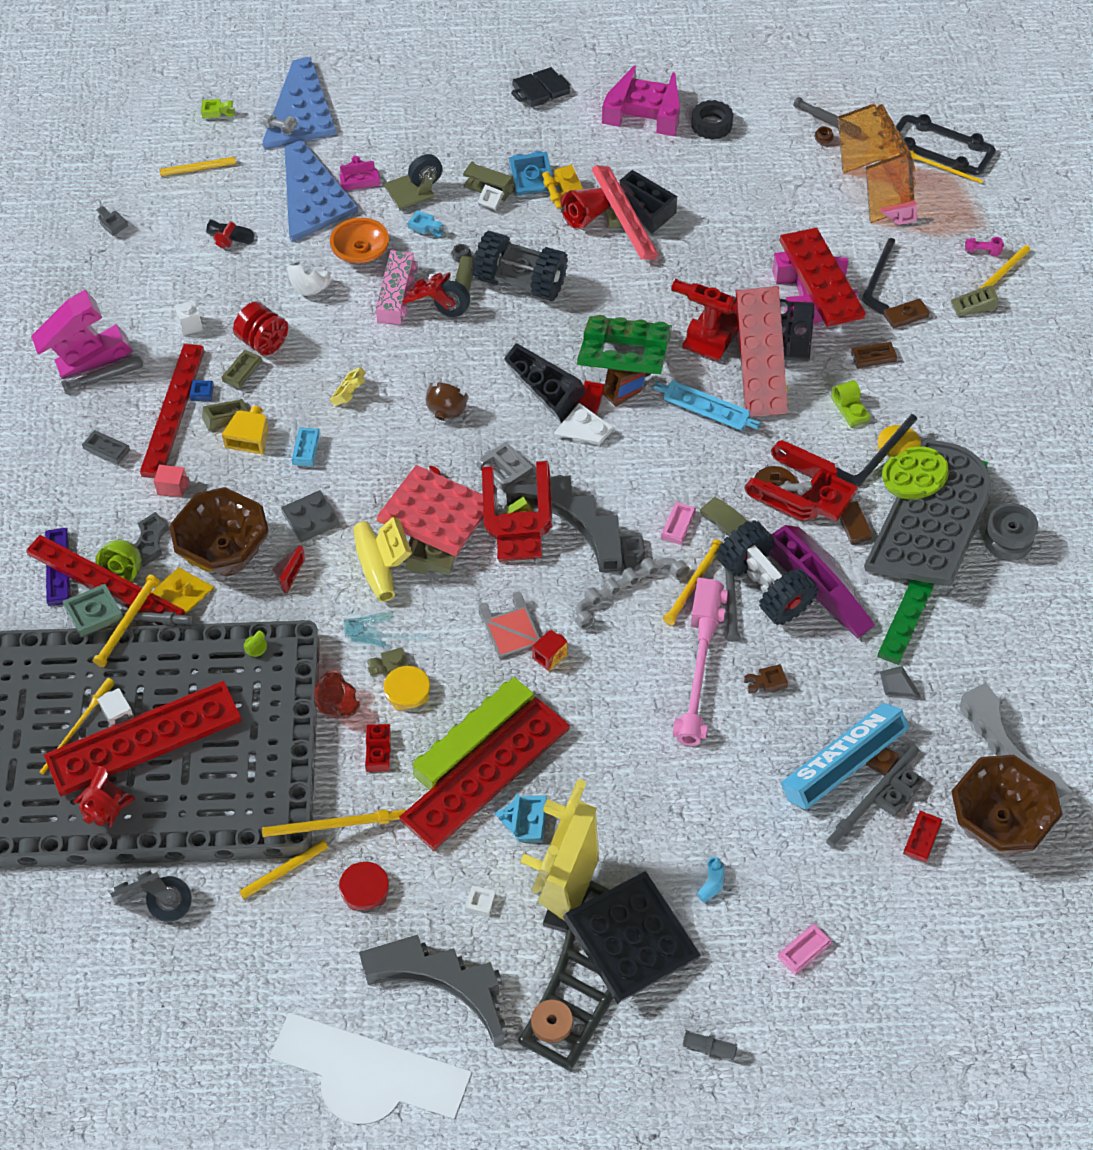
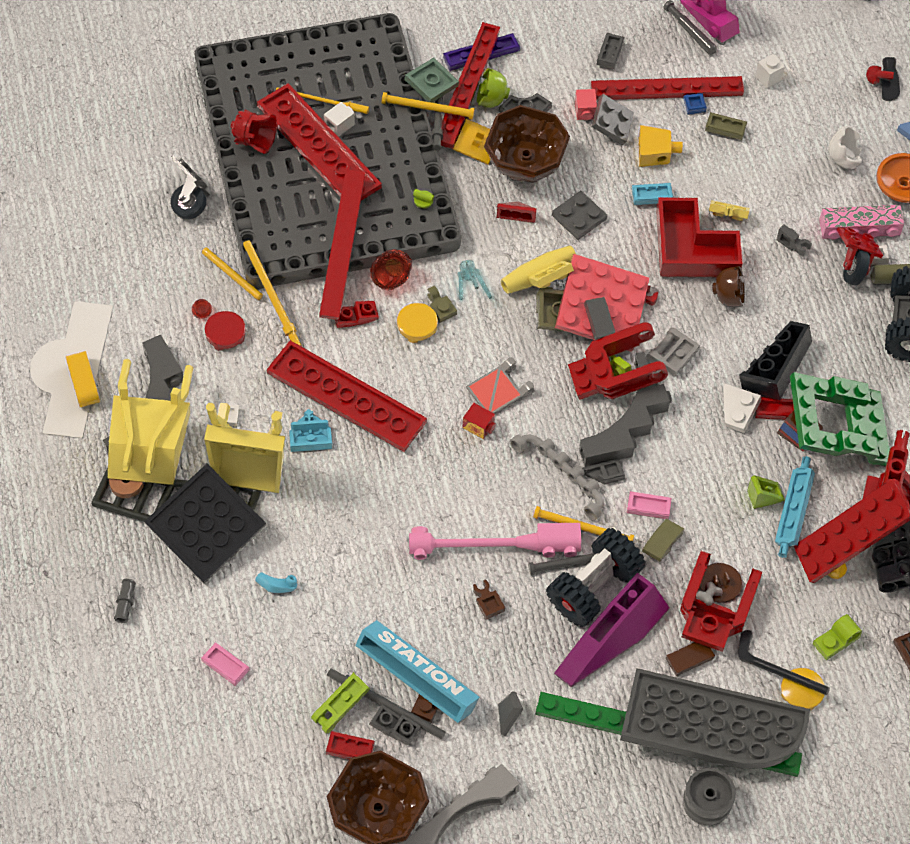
camera: 75 degrees right, 5 degrees up
(201, 459) = (612, 119): none -> plate
(217, 414) = (673, 118): olive slope -> none
(260, 328) = (769, 125): red wheel -> none
(293, 734) = (342, 244): none -> red tile
(326, 908) = (201, 309): none -> clear red plate
(380, 430) = (686, 248): none -> red piece
(393, 1055) = (82, 379): none -> yellow beam
(399, 345) = (790, 239): none -> dark grey plate
(460, 511) = (599, 317): none -> dark grey tile
(471, 732) = (382, 377): lime brick -> none
(500, 980) = (147, 433): none -> light yellow piece
(686, 428) = (764, 492): none -> lime slope
(873, 834) = (340, 702): none -> lime plate
(915, 473) = (759, 702): lime tile -> none

